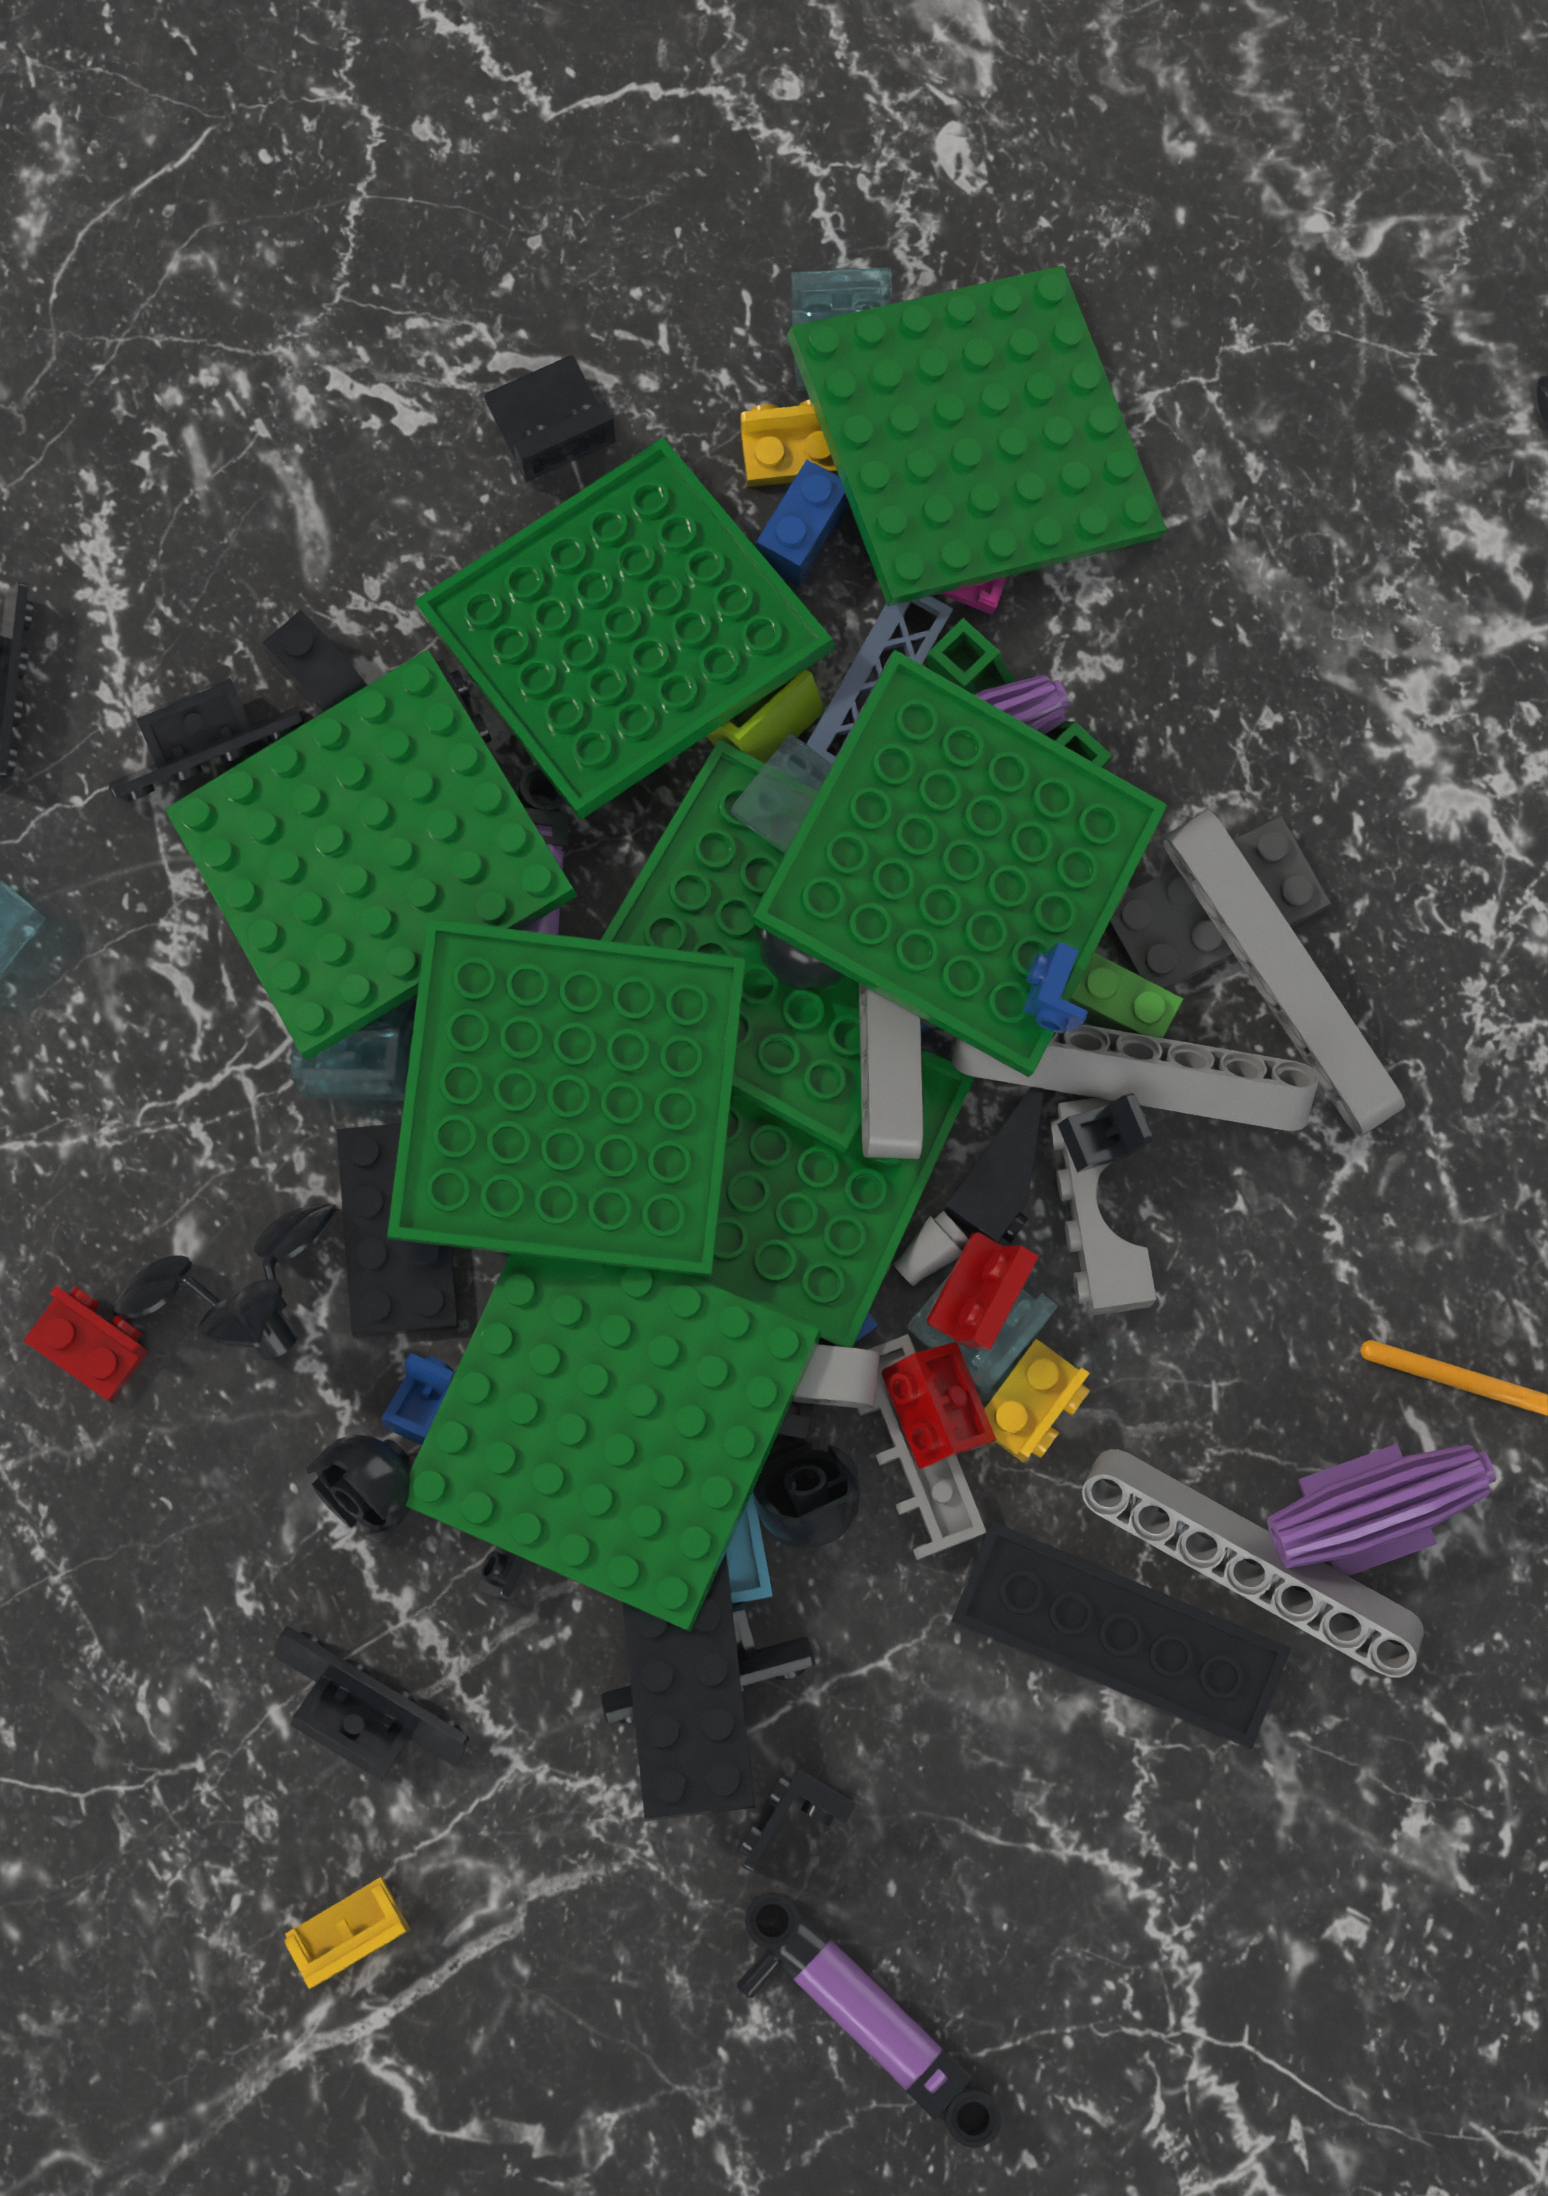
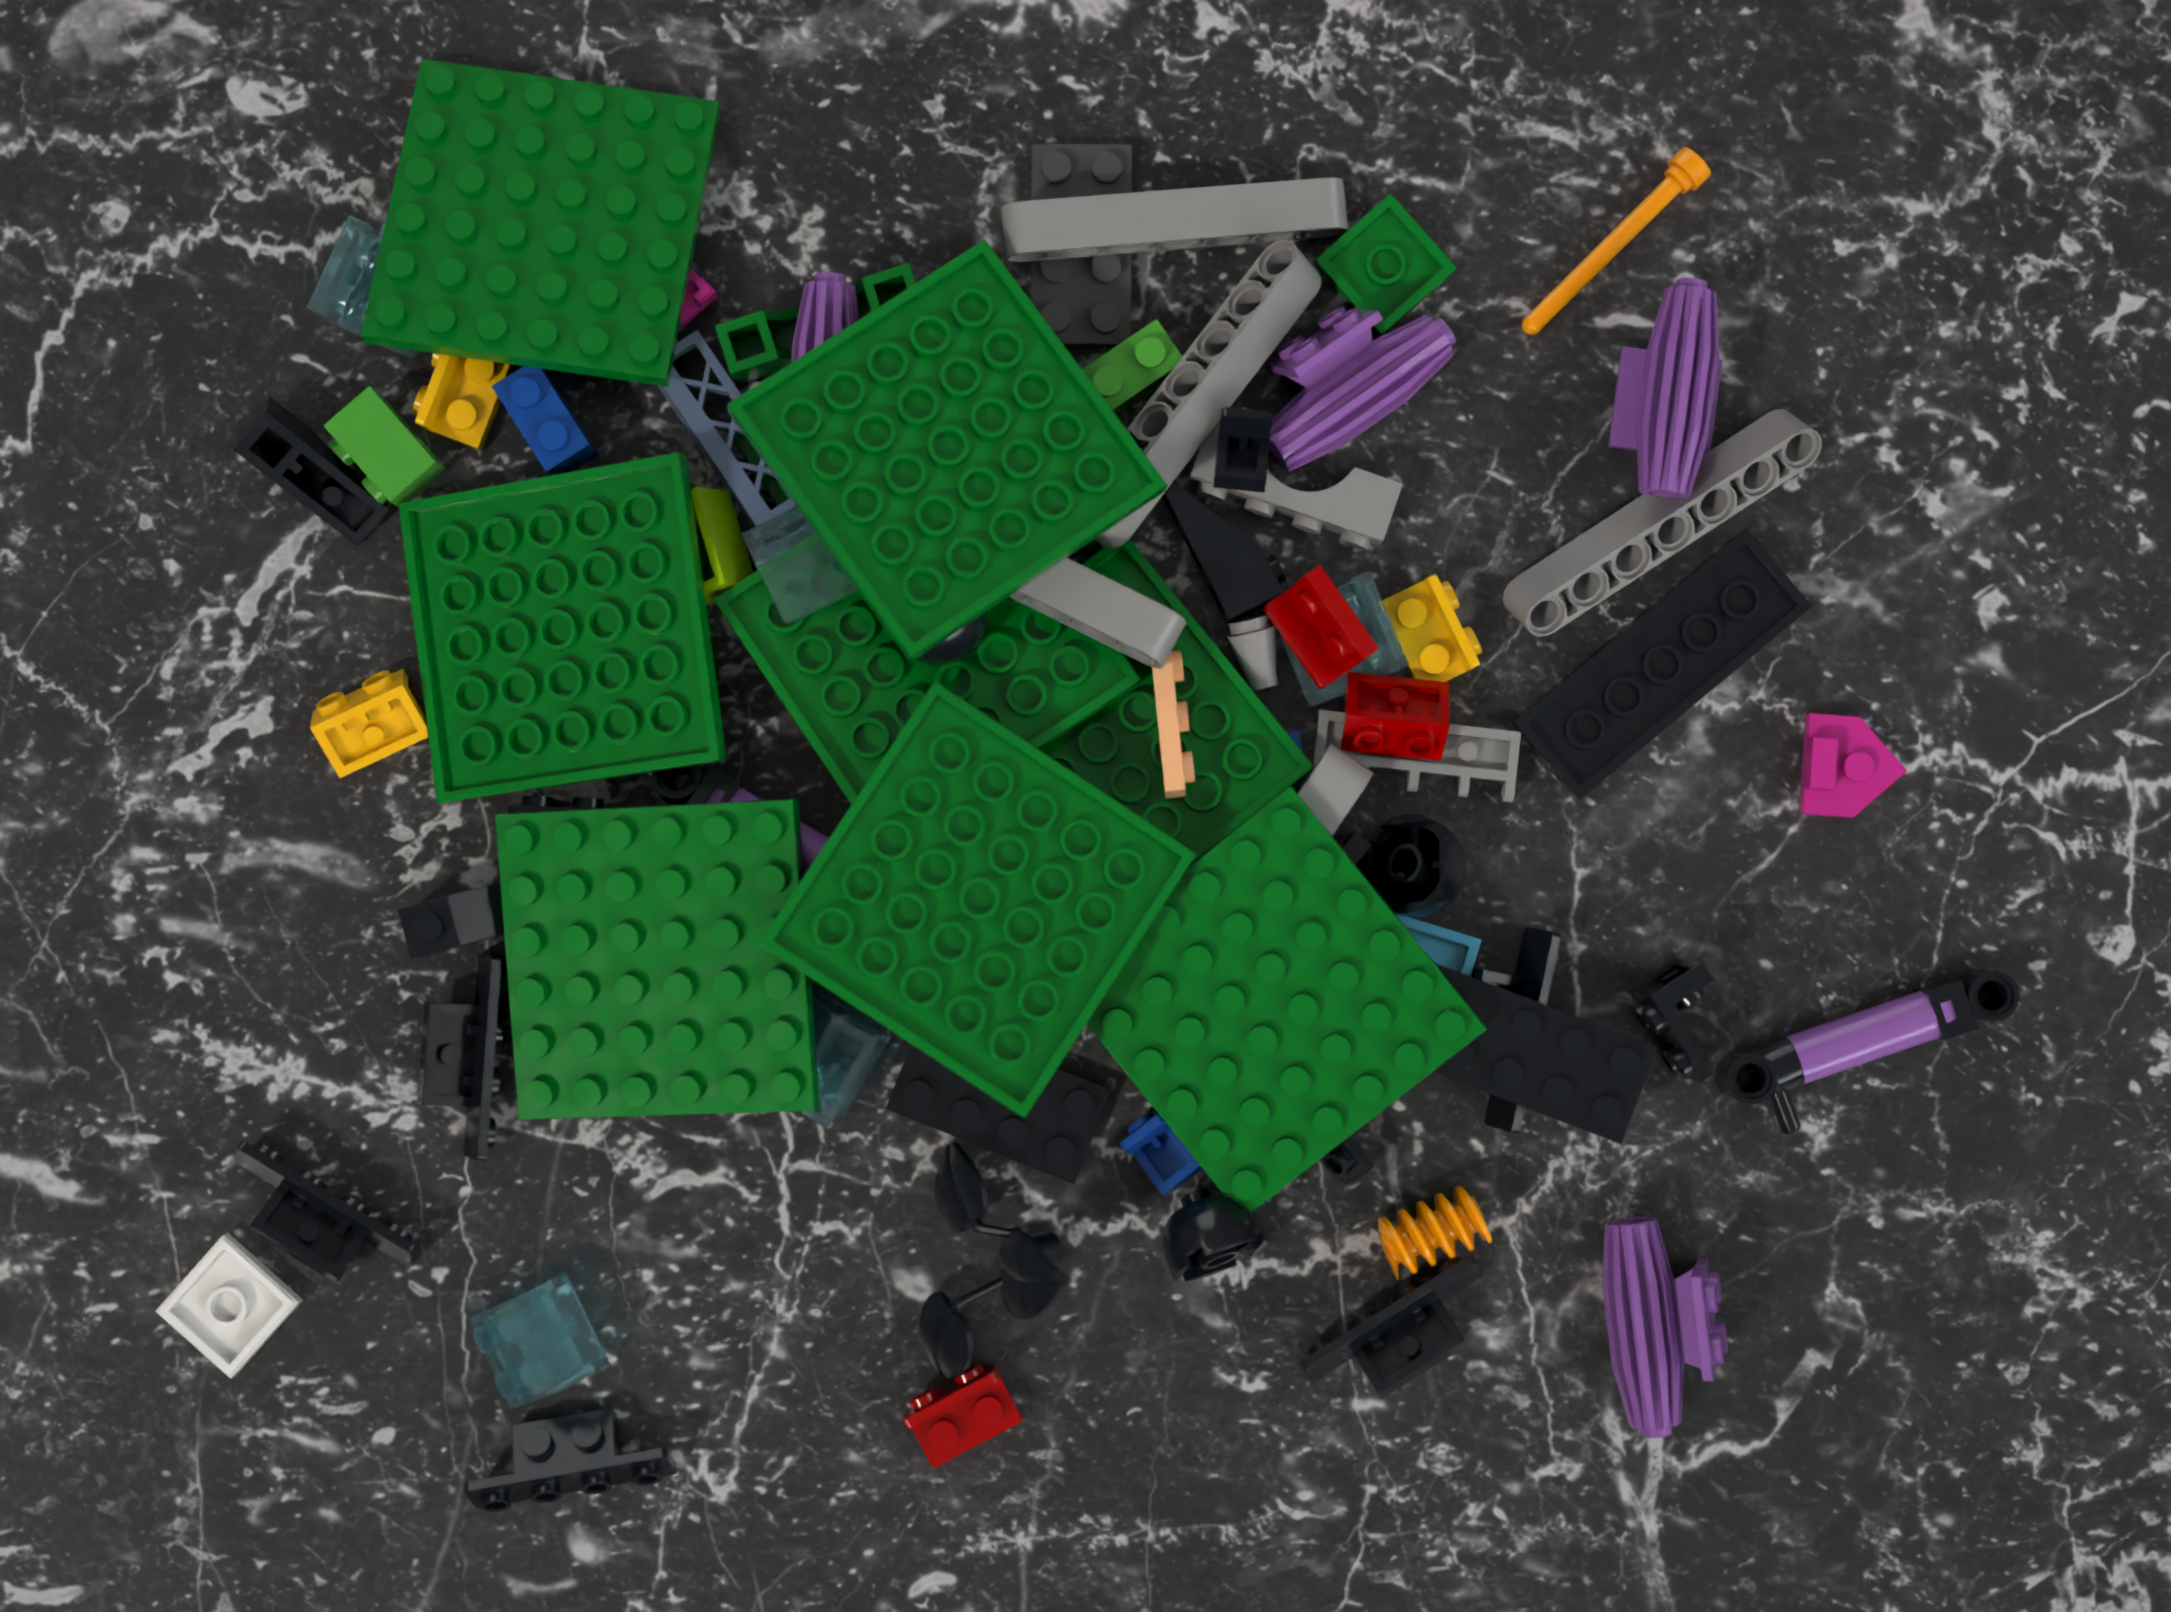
camera: 60 degrees left, 10 degrees up
(346, 1933) = (1576, 1435): yellow hinge -> none
(455, 508) = (368, 722): none -> yellow bracket
(473, 1691) = (1432, 1230): none -> light orange piece
(492, 1955) = (1657, 1323): none -> medium lavender plate
(550, 418) = (325, 594): black bracket -> none
(651, 350) = (308, 470): none -> black slope
(704, 401) = (383, 448): none -> bright green brick
(822, 1196) = (1172, 720): none -> light nougat plate
(1048, 979) = (1096, 428): blue bracket -> none
(1118, 1862) = (1843, 766): none -> dark pink plate
(1225, 1207) = (1351, 380): none -> medium lavender plate
(1348, 1186) = (1385, 264): none -> green plate

